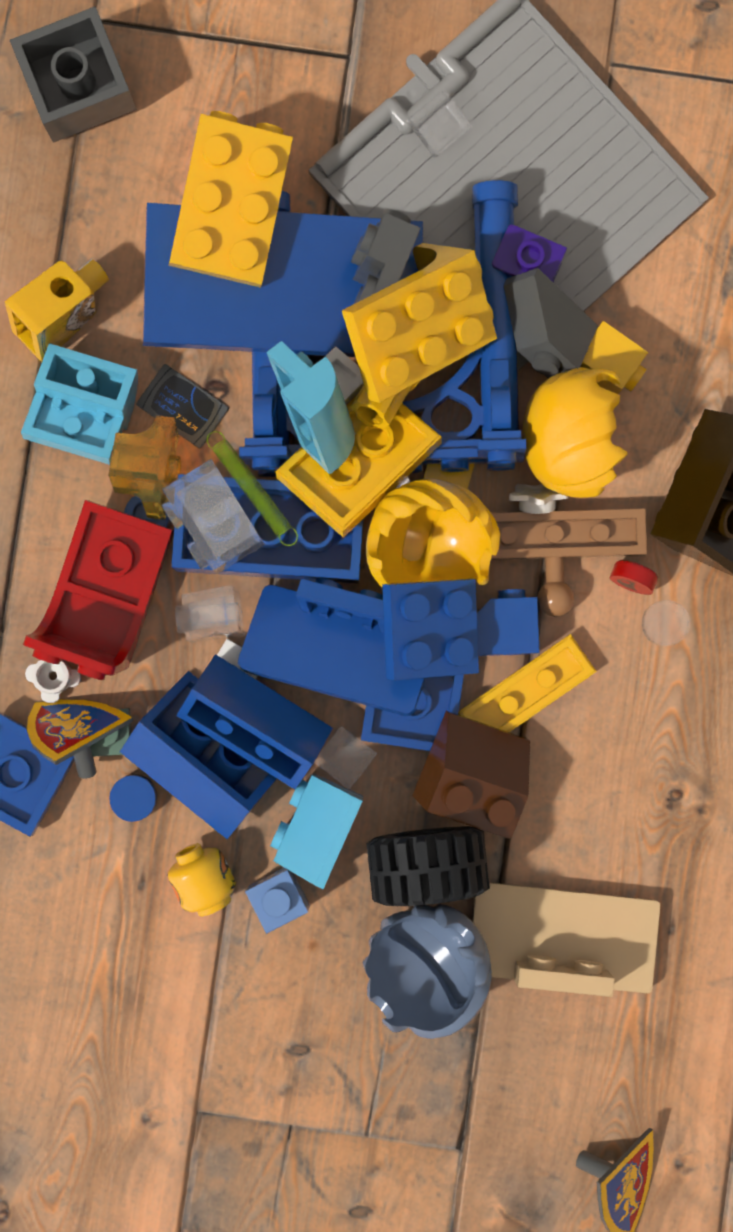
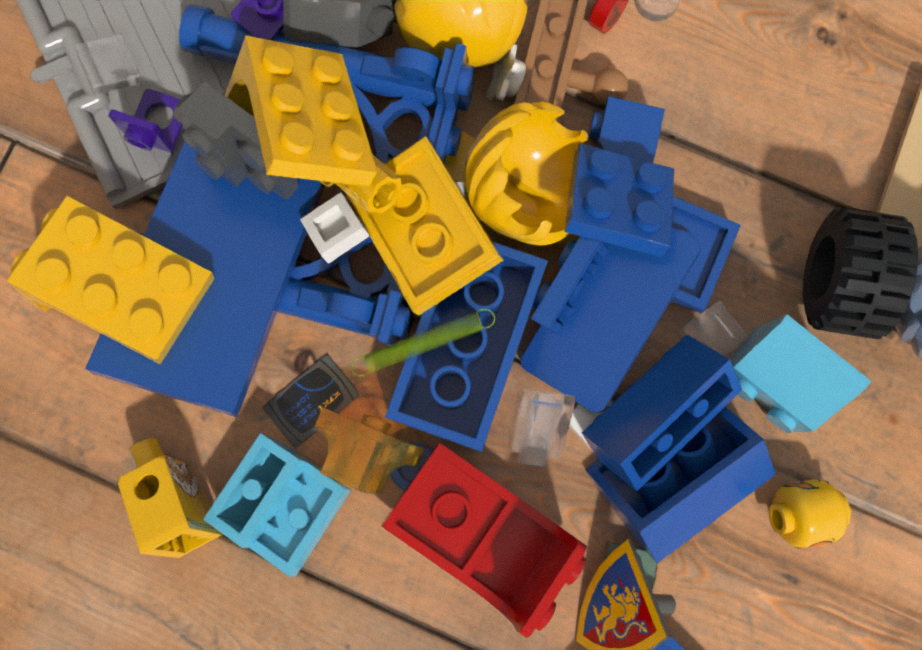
camera: 75 degrees left, 5 degrees down
(51, 689) = (566, 622): white plate -> none
(133, 798) = (703, 562): blue tile -> none
(212, 518) = (444, 390): clear brick -> none
(277, 899) = (850, 440): medium blue brick -> none
(314, 406) = (355, 244): medium azure brick -> none
(380, 181) = (144, 133): none -> dark purple bracket
(476, 775) = (773, 205): reddish brown slope -> none
(532, 687) = (692, 141): yellow tile -> none

